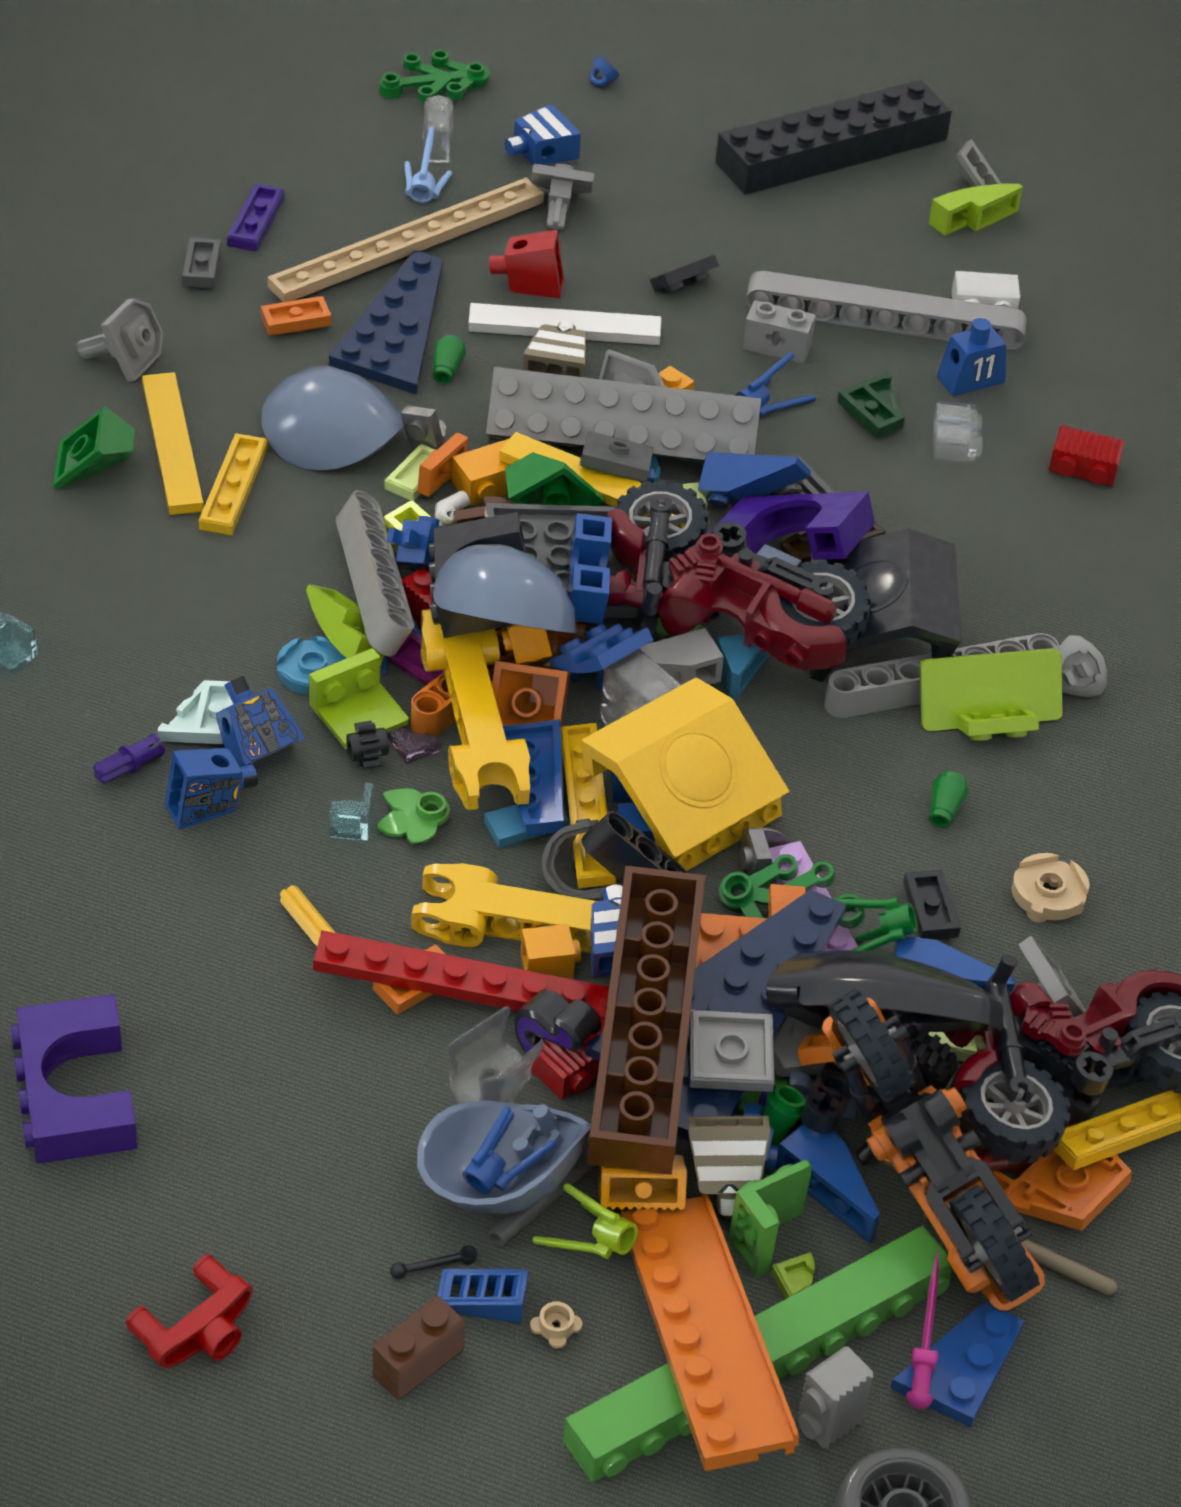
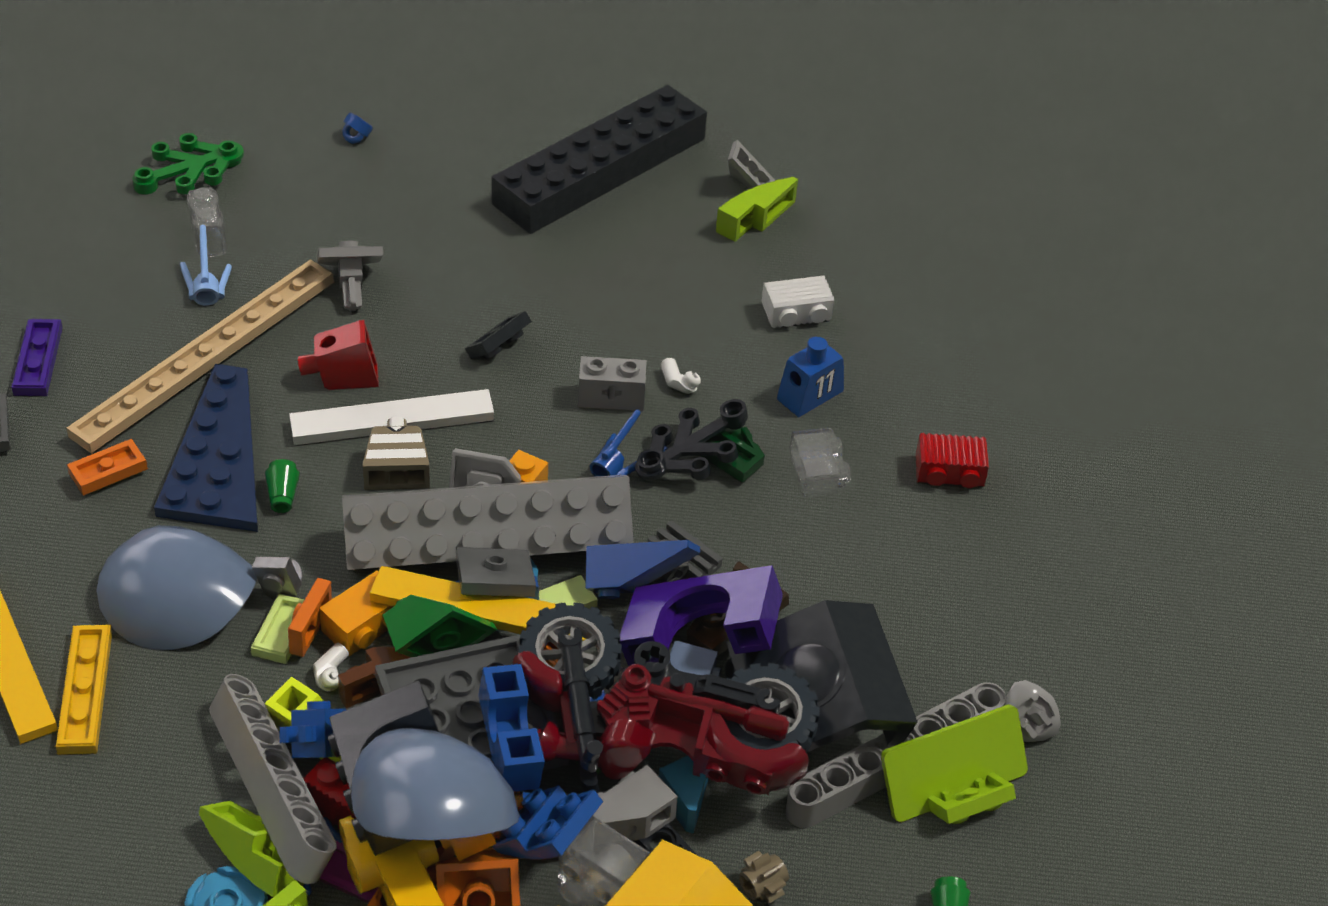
camera: 15 degrees left, 0 degrees up
(544, 137) = (317, 211): blue torso -> none
(784, 739) = (763, 877): none -> dark tan gear
(799, 403) = (656, 462): none -> black plant
(842, 341) = (684, 383): none -> white arm
(884, 308) = (704, 336): light grey beam -> none

